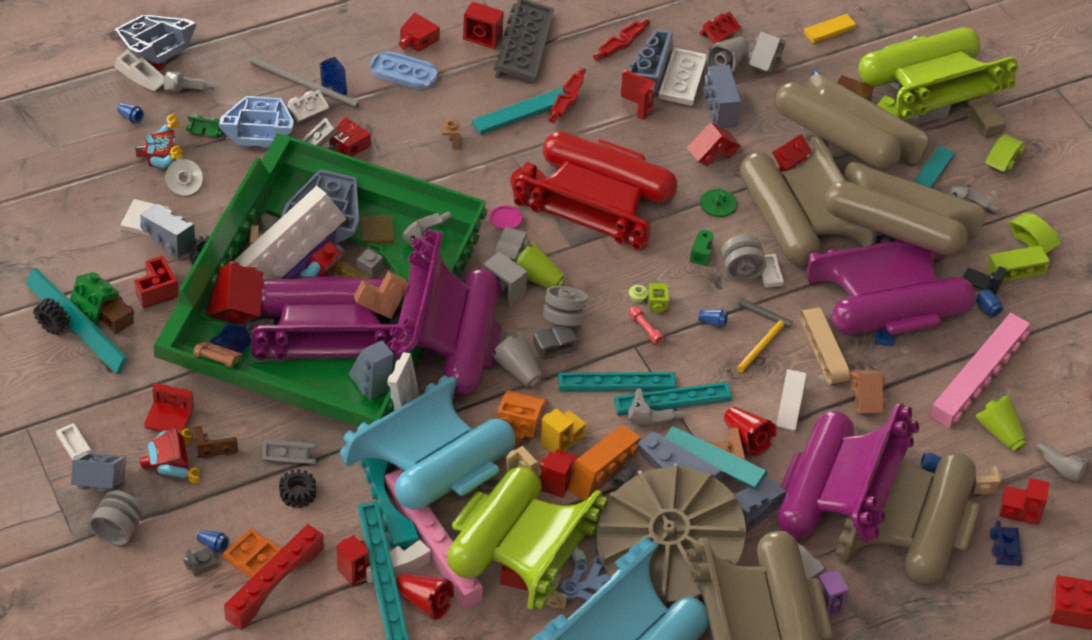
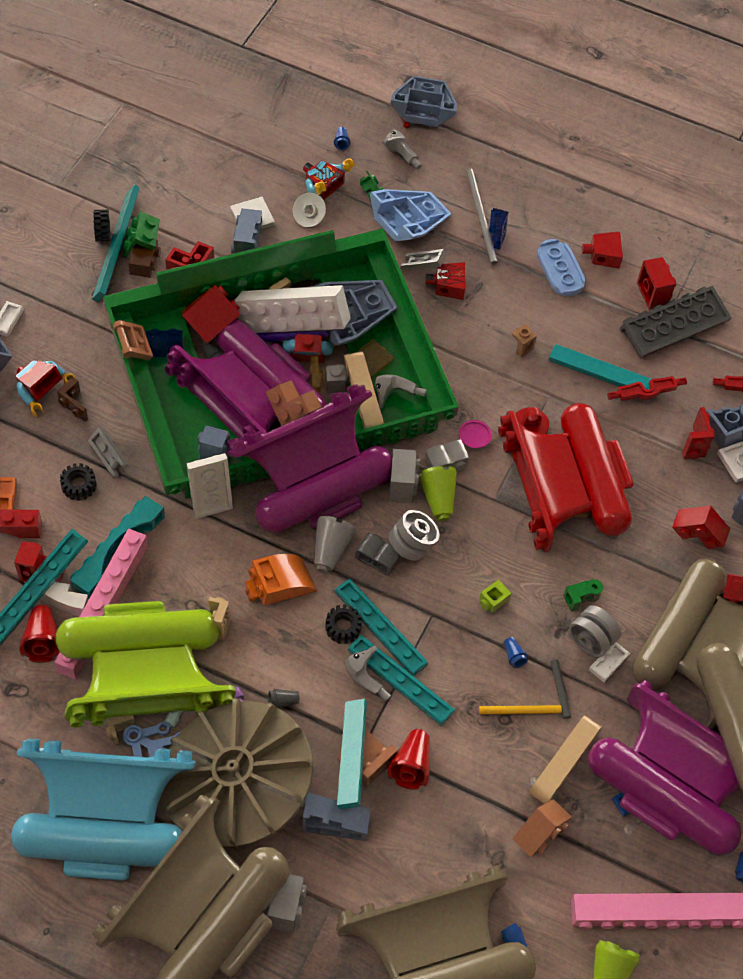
camera: 50 degrees right, 10 degrees up
(139, 71) = (386, 115): white slope -> none
(170, 408) = (81, 354): red bracket -> none
(307, 106) = (457, 233): white bracket -> none
(393, 245) = (359, 374): none -> tan beam
(432, 447) = (176, 541): medium azure piece -> none
(557, 472) = (242, 647): red brick -> none
(561, 430) = (286, 622): yellow brick -> none
(592, 409) = (343, 613): none -> black tyre
(603, 461) = (282, 671): orange wedge -> none
(637, 315) = (464, 595): coral bar -> none
(638, 293) = (487, 573): yellowish green plate -> none
(664, 453) = (324, 730): sand blue wedge -> none
(718, 203) = (648, 573): green piece -> none
(791, 400) = (477, 773): white slope -> none
(834, 592) = (282, 943): medium lavender brick -> none
(845, 473) = (417, 872): magenta piece -> none

